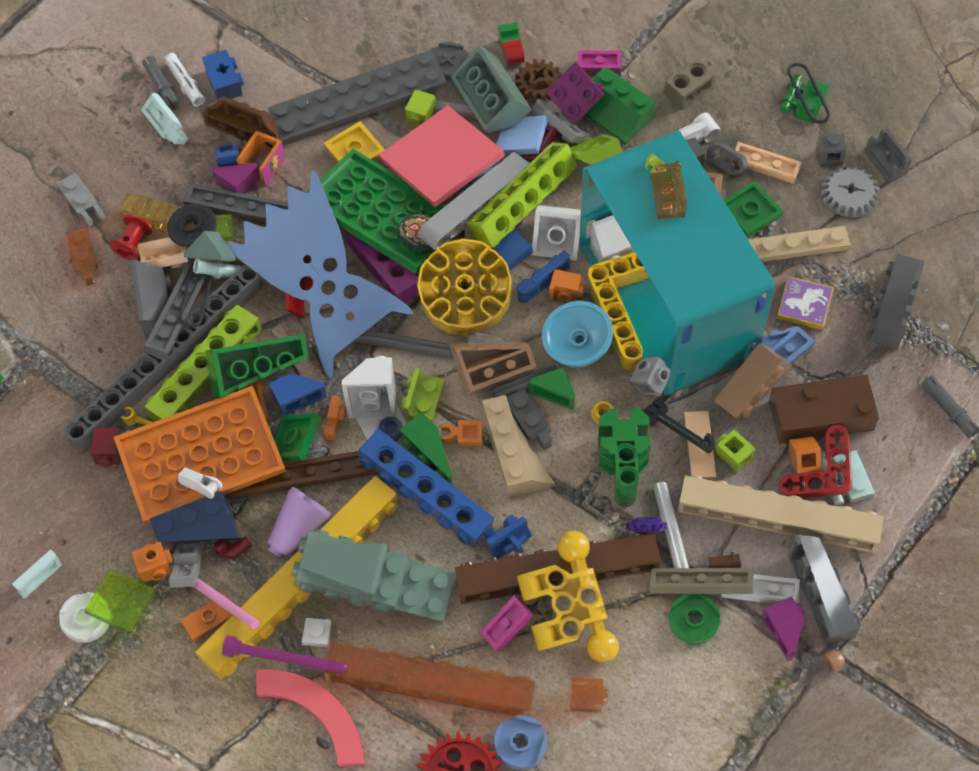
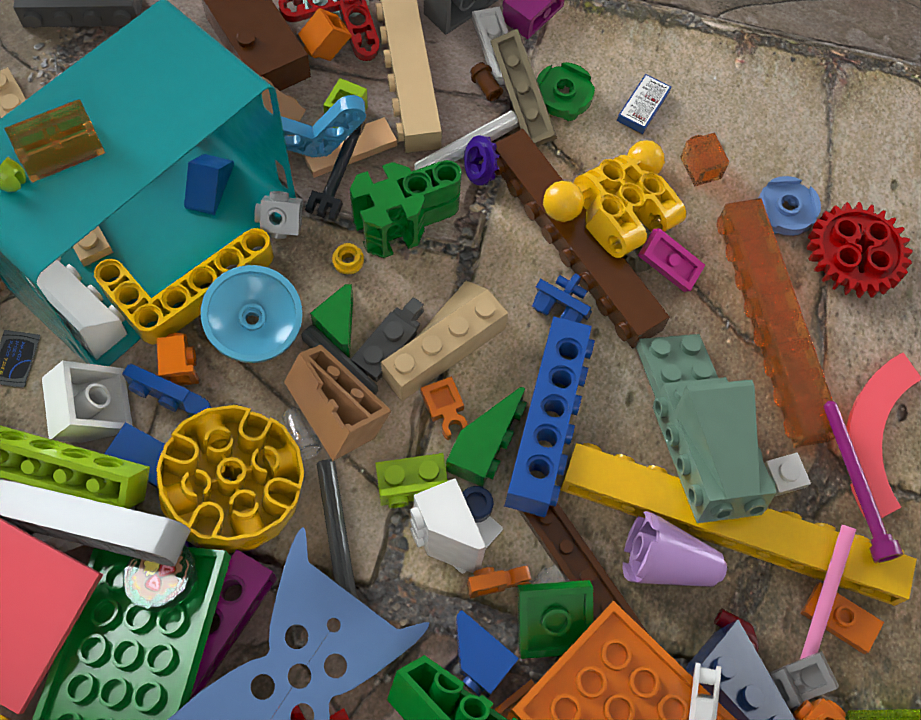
camera: 120 degrees left, 5 degrees up
(661, 678) = (644, 104): none -> tile
(707, 398) = (321, 139): none -> dark azure beam

